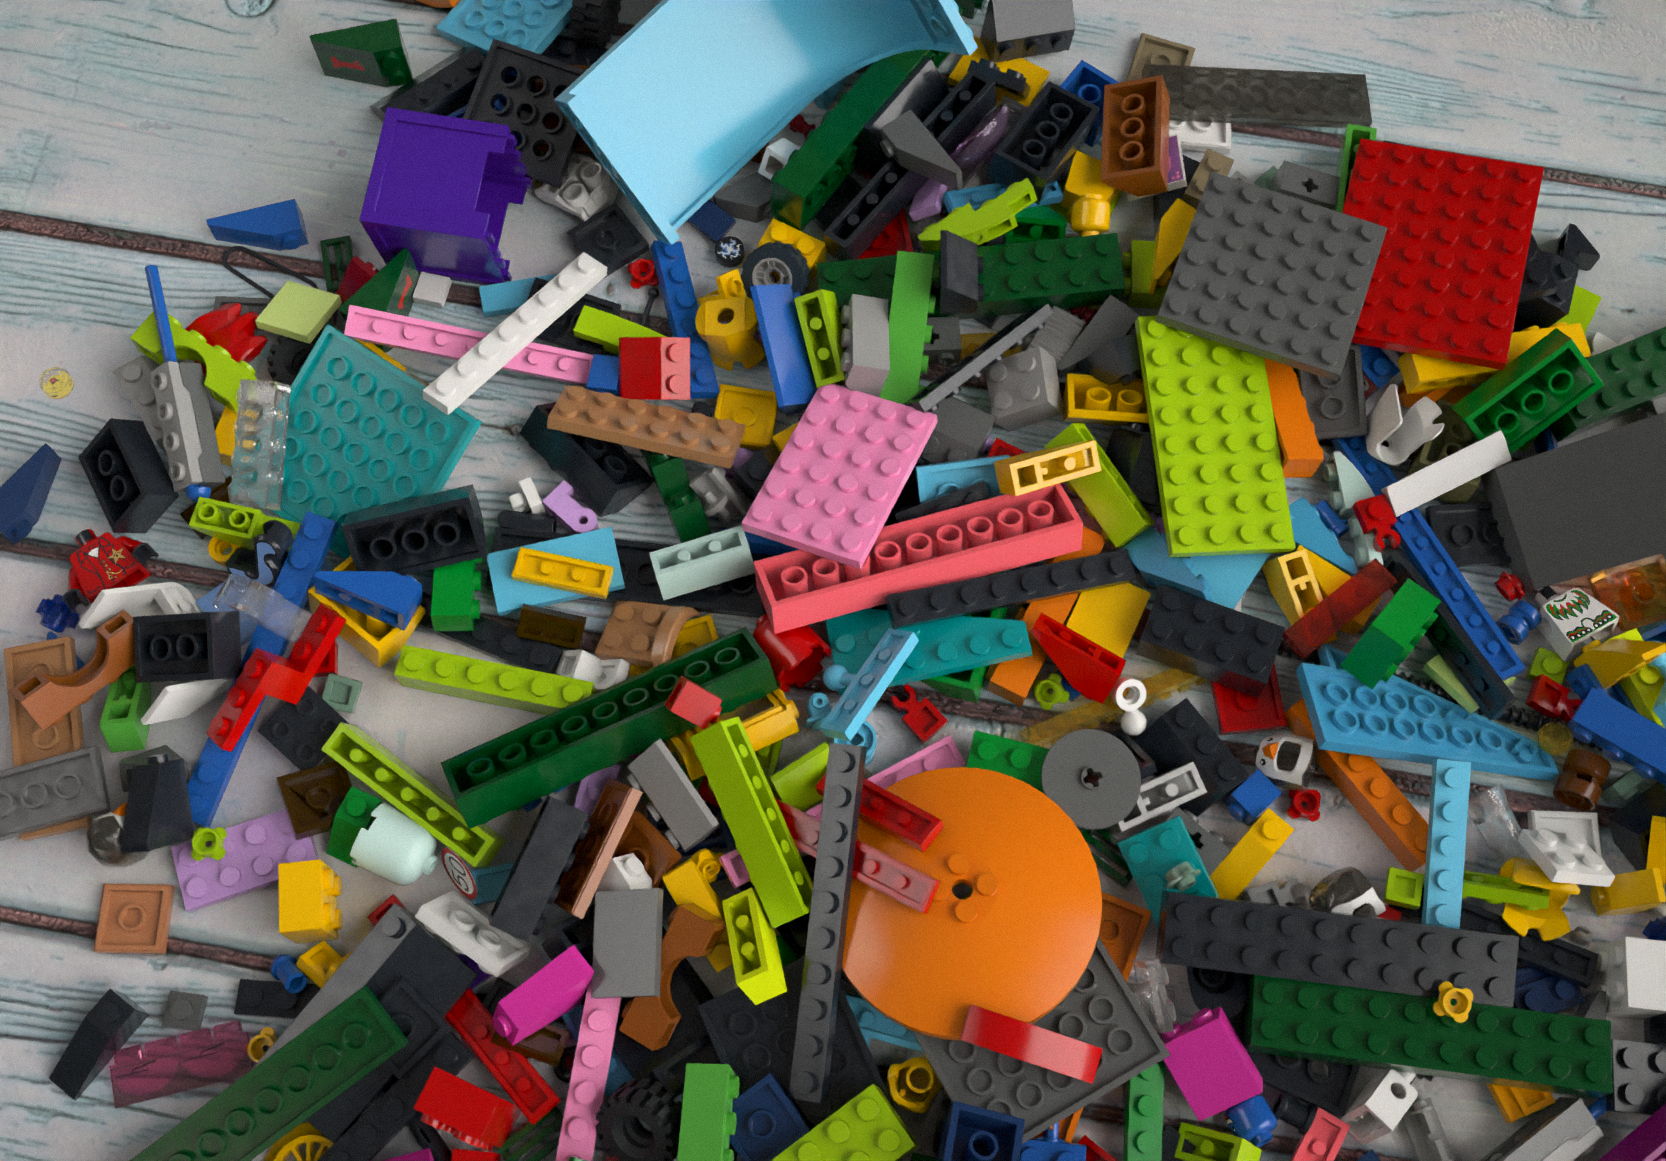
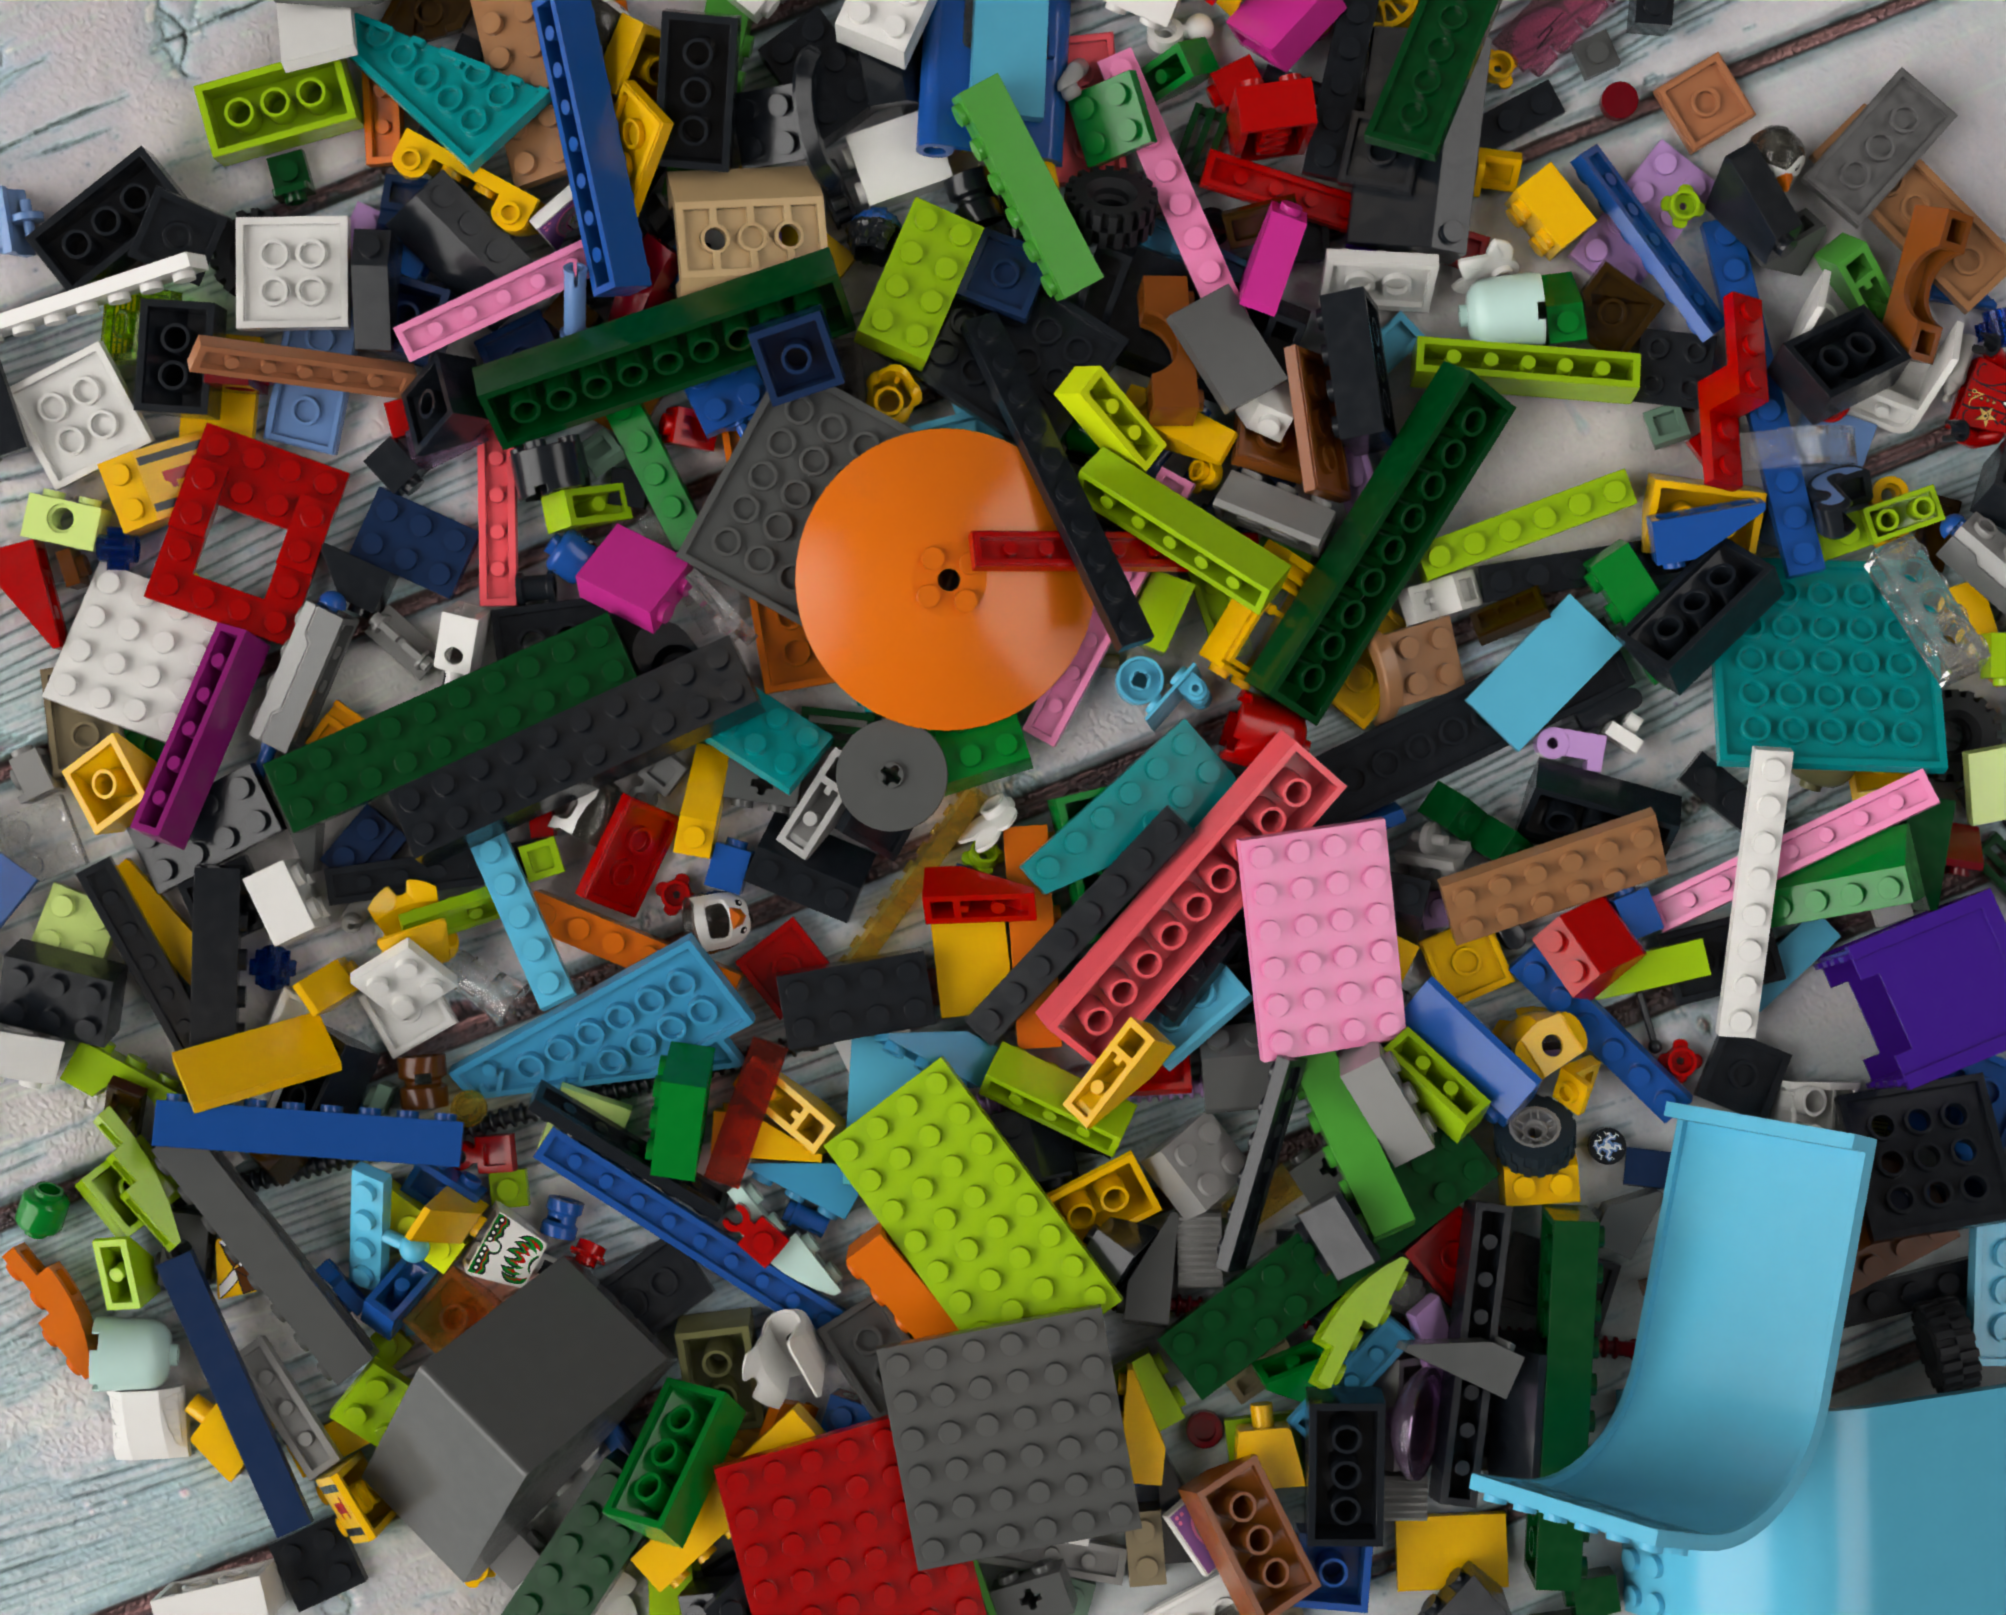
camera: 150 degrees right, 20 degrees up
(194, 962) = (1618, 101): none -> dark red tile
(253, 832) = (1649, 242): none -> blue plate
(285, 970) = (1531, 145): blue pin -> none
(376, 888) = (1495, 262): none -> white plate
(441, 296) = (1857, 879): none -> green slope
(458, 873) = (1430, 325): sticker -> none
(492, 432) = (1716, 788): none -> black plate
(563, 573) = (1532, 671): yellow tile -> none
(694, 703) = (1309, 601): brick -> none
(702, 562) = (1401, 765): light aqua brick -> none
(776, 157) = (1618, 1275): white brick -> none
(867, 685) = (1159, 732): medium azure plate -> none
(895, 815) = (1053, 614): red plate -> none
(921, 718) = (1091, 751): red plate -> none
(1010, 81) = (1443, 1529): black plate -> none
(1030, 708) = (997, 815): none -> white plate
(1030, 1043) = (805, 477): slope -> none
(1090, 215) = (1242, 1406): yellow head -> none
(1125, 232) = (1204, 1429): none -> dark red tile
(1133, 721) = (885, 873): white plate -> none
(1181, 877) = (754, 730): sand green plate -> none
(1330, 851) = (628, 855): none -> red tile
(1447, 473) = (713, 1326): white slope -> none
(1463, 1002) = (435, 753): yellow plate -> none

